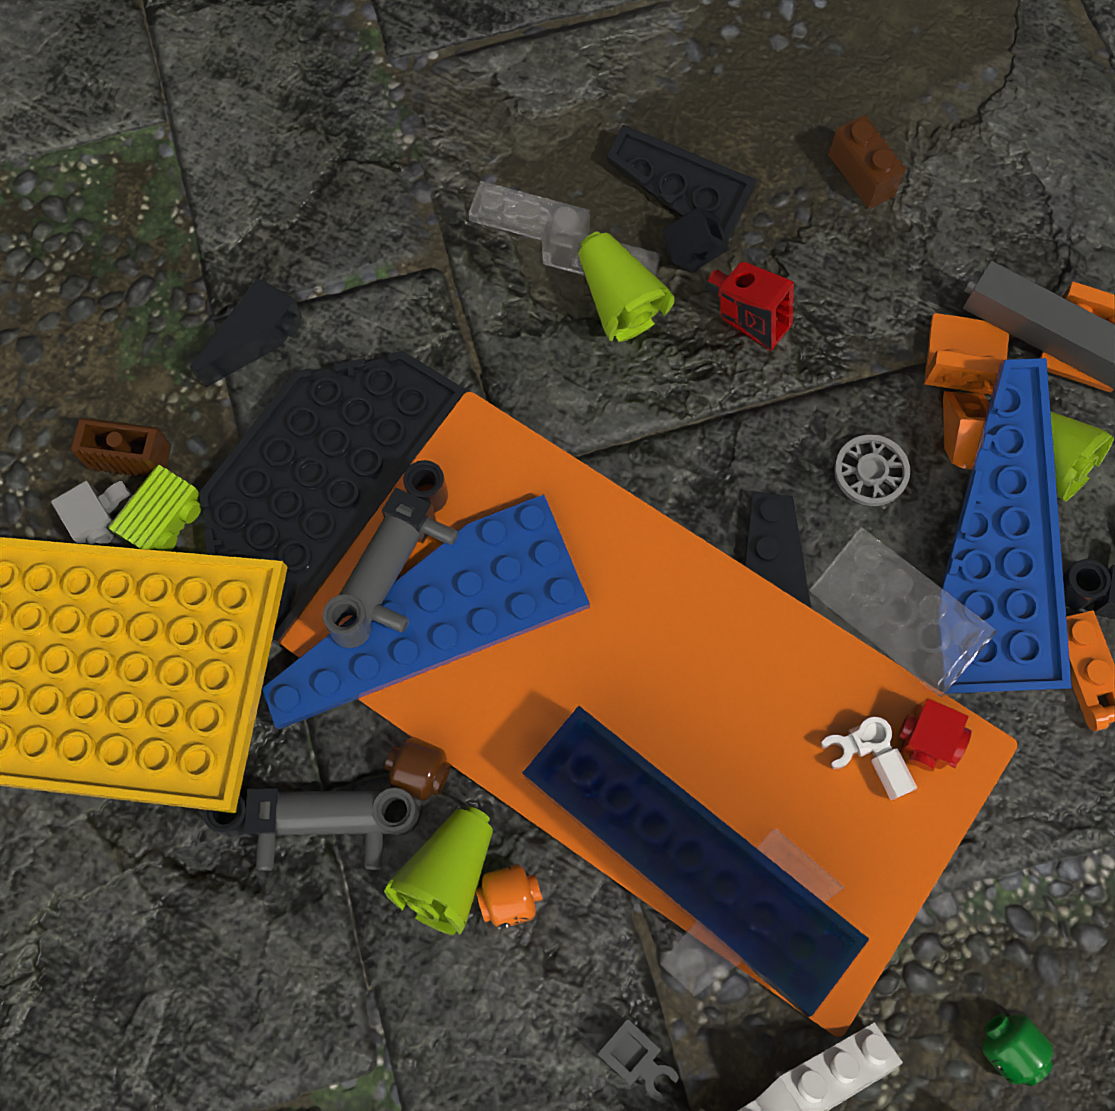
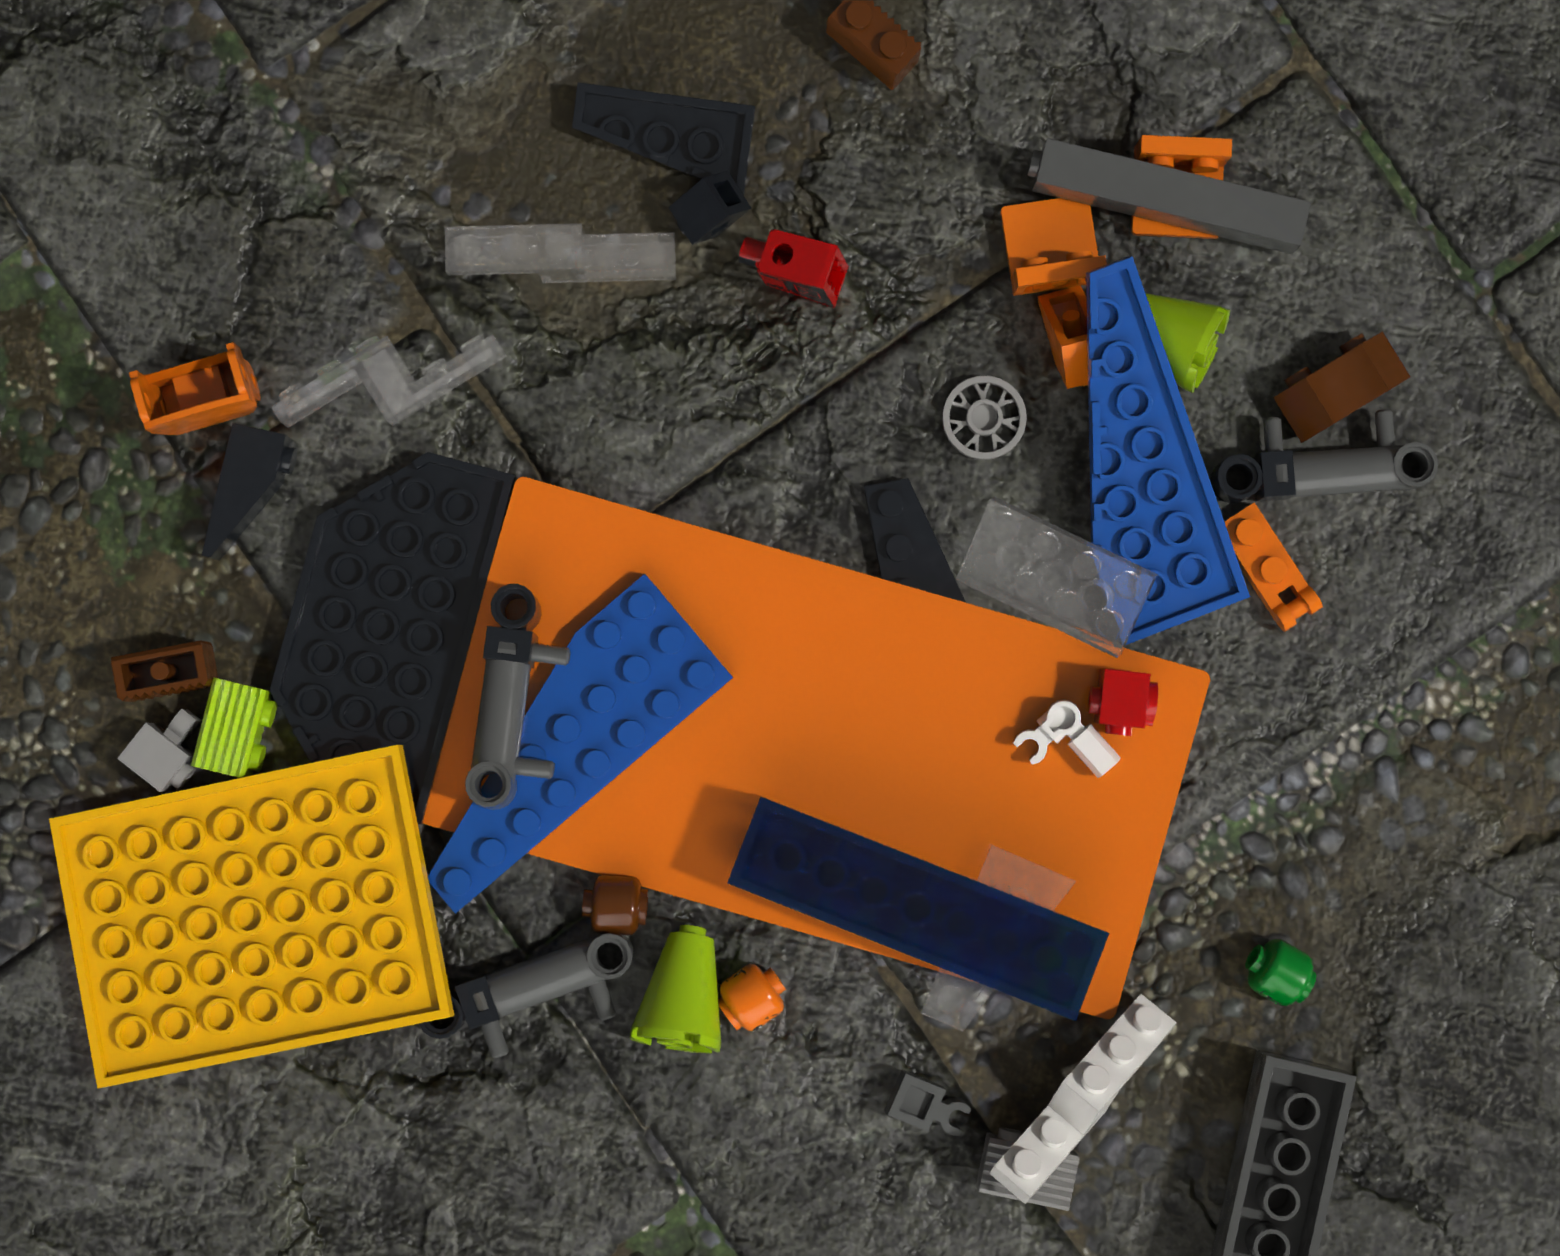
camera: 30 degrees left, 15 degrees up
(238, 251) = (196, 393): none -> orange piece
(393, 289) = (387, 379): none -> clear bracket
(621, 287) = (644, 298): lime cone -> none

